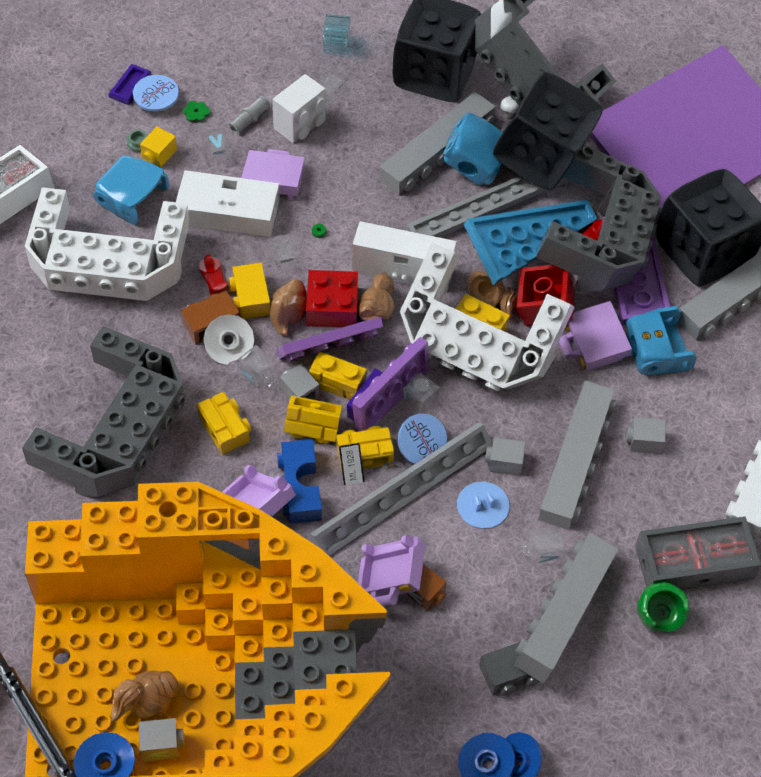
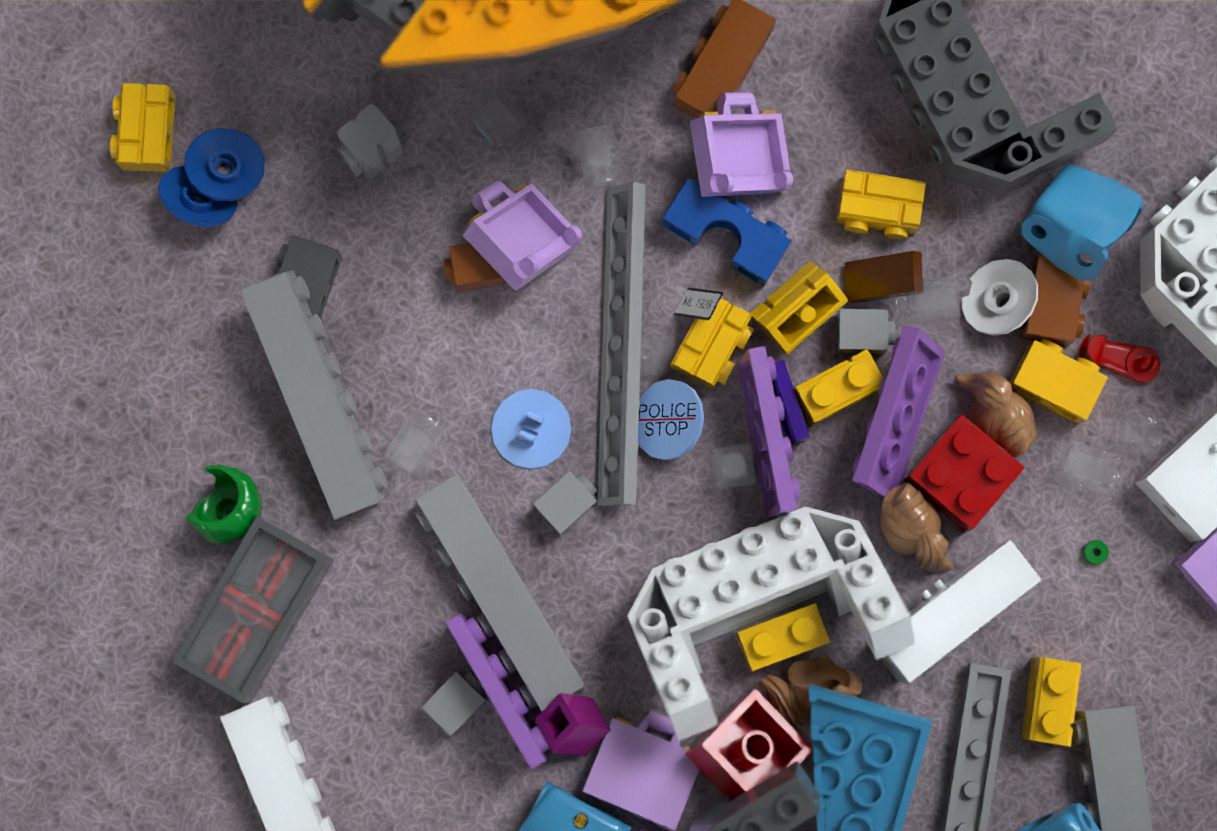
camera: 130 degrees right, 25 degrees up
(163, 319) = (1079, 216): none -> dark azure piece
(263, 392) = (884, 277): none -> reddish brown tile
(406, 201) = (1051, 701): none -> yellow brick
(409, 684) = (368, 143): none -> light grey brick
(607, 373) = (572, 724): none -> magenta brick
(622, 414) = (490, 674): none -> medium lavender plate

